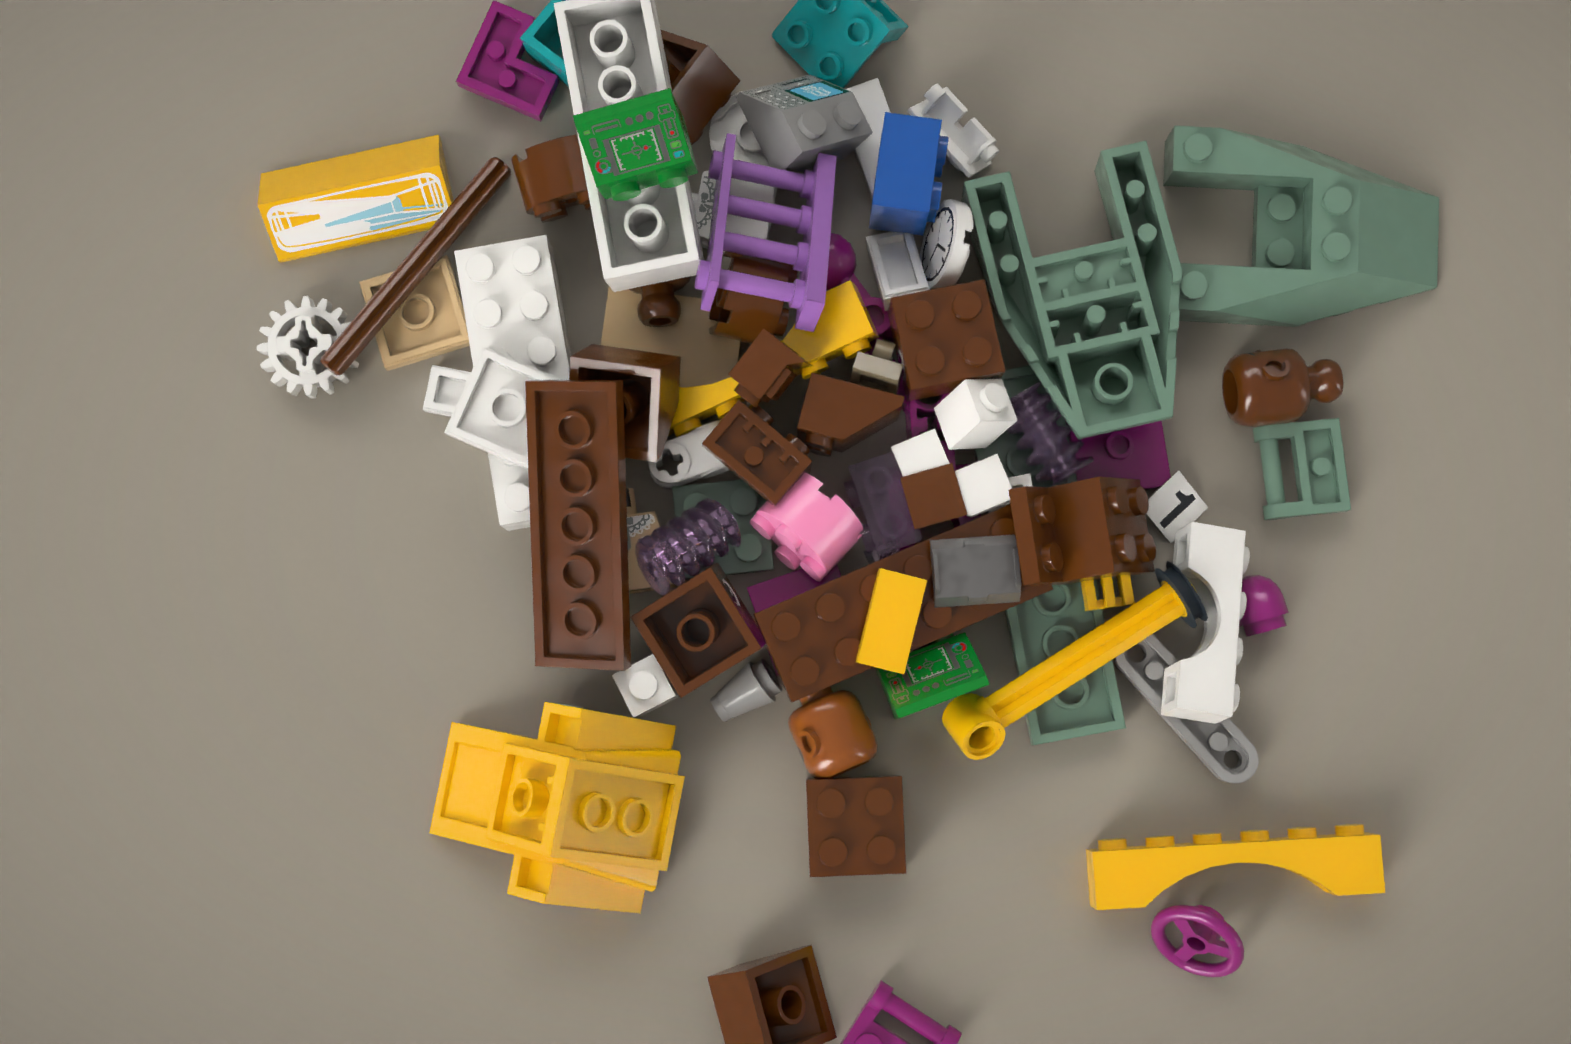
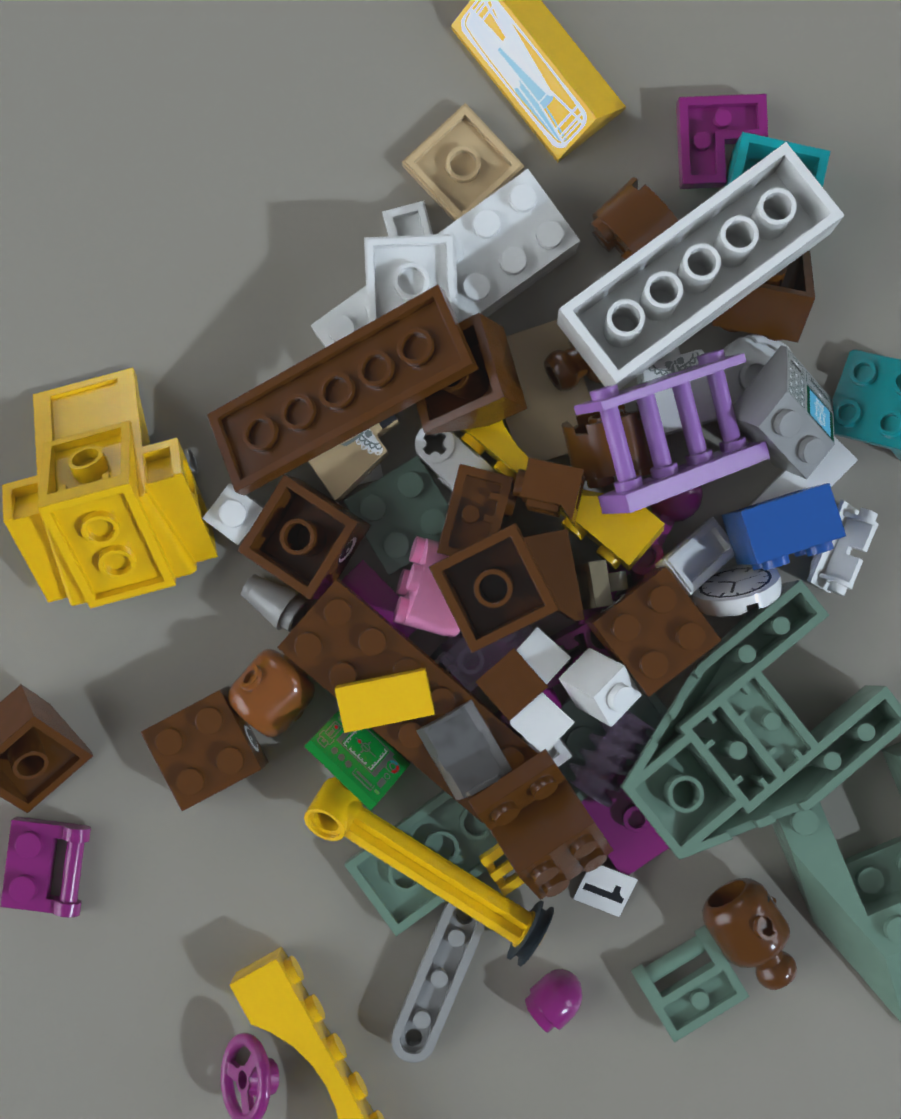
camera: 60 degrees right, 5 degrees up
(290, 346) = (399, 77): white gear -> none
(415, 266) = (500, 143): reddish brown axle -> none
(636, 145) = (691, 276): green slope -> none
(685, 544) = (368, 489): clear purple piece -> none
(833, 461) = (494, 587): none -> reddish brown brick
(1214, 564) = (469, 988): white arch -> none

